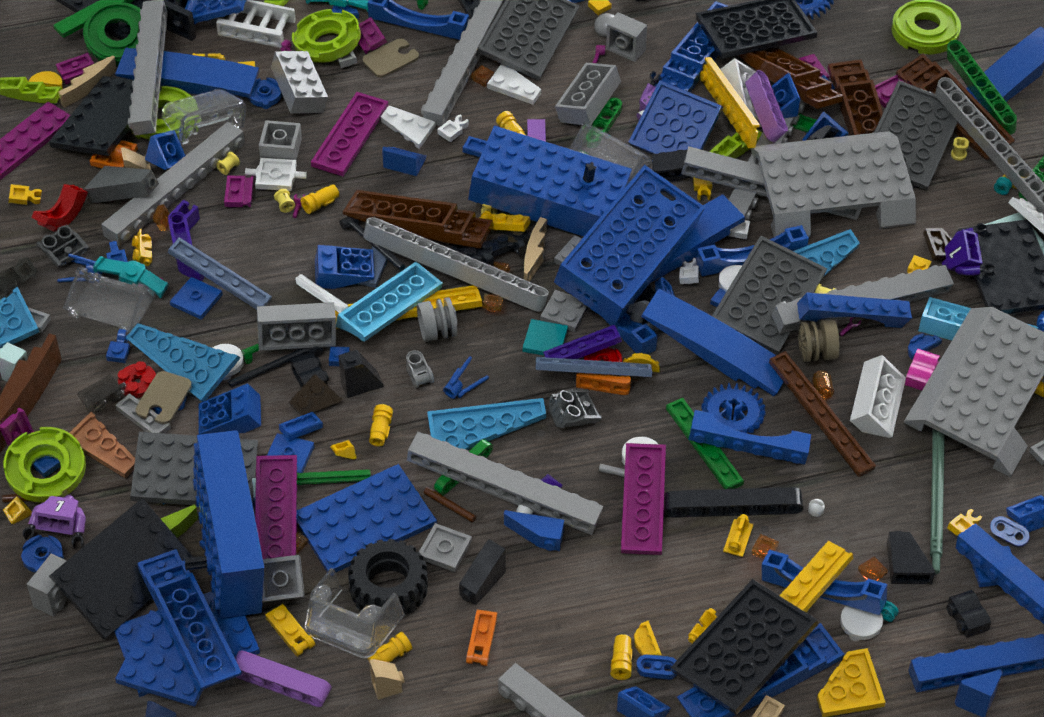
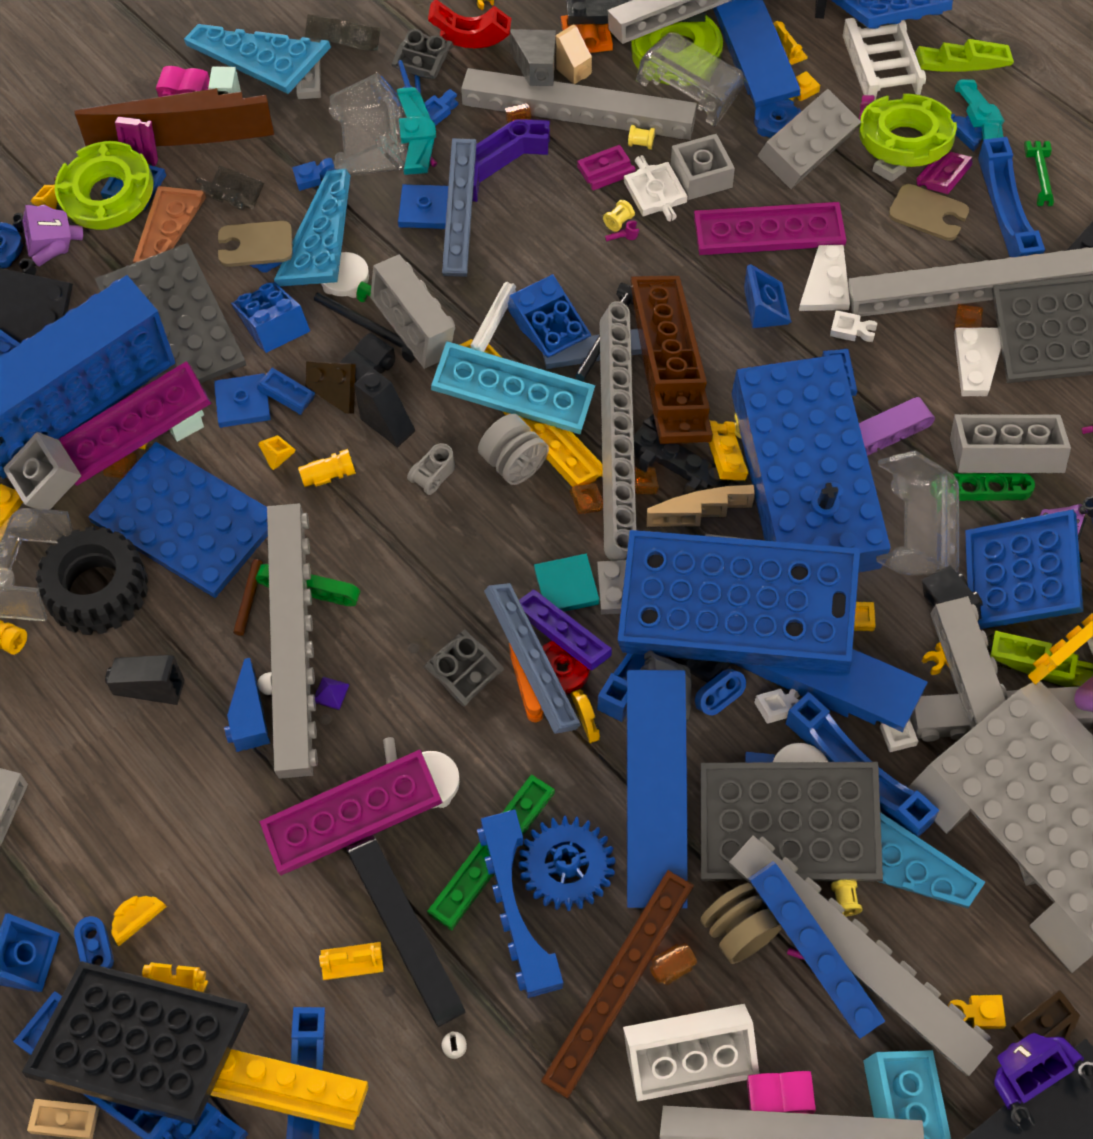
camera: 65 degrees right, 10 degrees up
(127, 408) = (210, 258): light grey plate -> none
(136, 371) = (276, 200): red plate -> none
(142, 246) = (470, 118): yellow hinge -> none
(164, 150) = (611, 68): blue slope -> none
(321, 198) = (647, 248): yellow axle -> none
(332, 477) = (228, 456): green axle -> none
(334, 352) = (415, 381): blue plate -> none
(445, 547) = (176, 620): light grey plate -> none
(454, 386) = (429, 518): blue plant -> none
(469, 425) = (376, 563): dark azure wing -> none
(481, 637) = (58, 721): orange plate -> none
(508, 121) = (898, 383): yellow axle -> none
(622, 655) = (94, 894): yellow axle -> none
(763, 545) = (347, 1003): clear orange plate -> none
(922, 342) = (837, 1076): blue tile -> none

